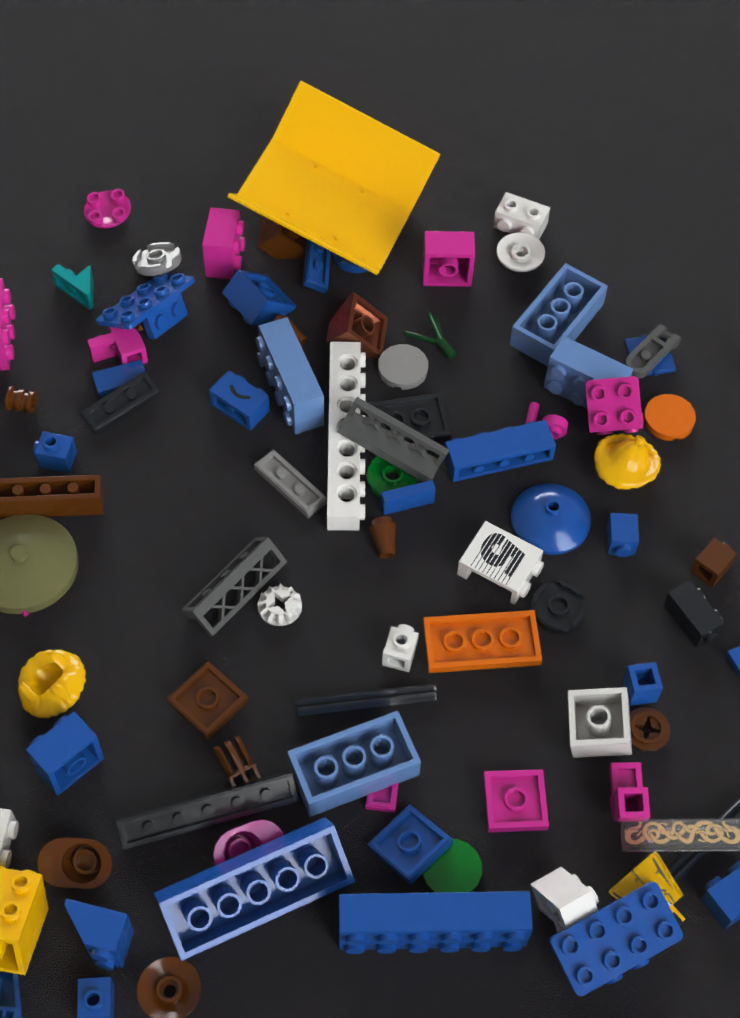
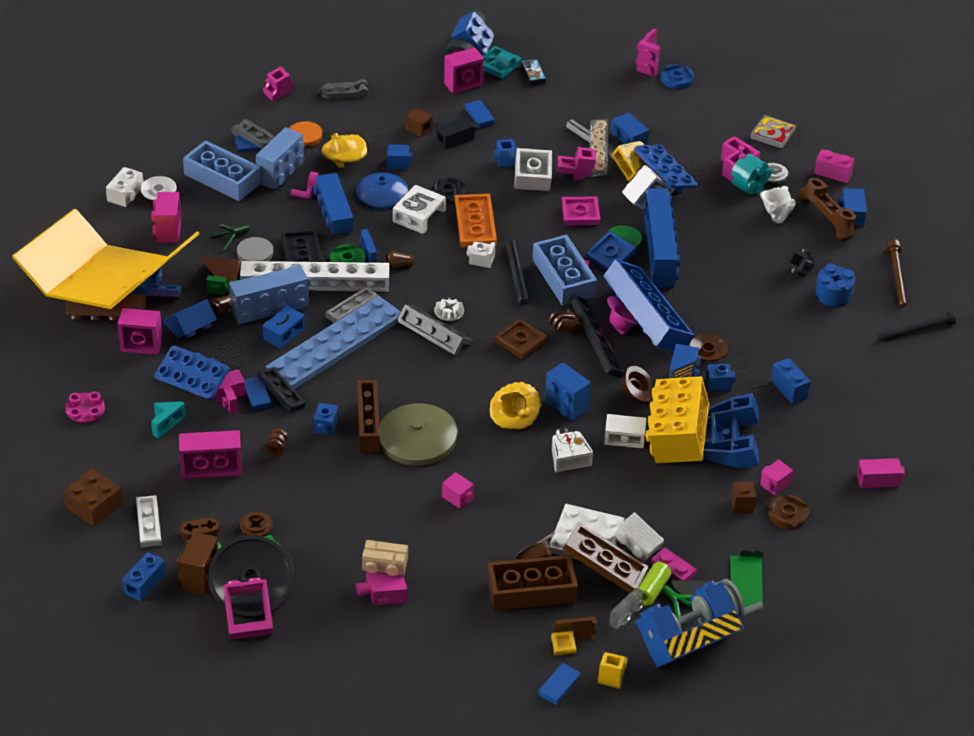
camera: 90 degrees left, 15 degrees down
(157, 259) = (144, 374): light grey tile -> none
(217, 465) = (336, 341): none -> medium blue plate
(317, 340) = (218, 285): none -> green plate
(390, 443) = (331, 247): dark grey fence -> none
(614, 405) = (311, 143): dark pink bracket -> none

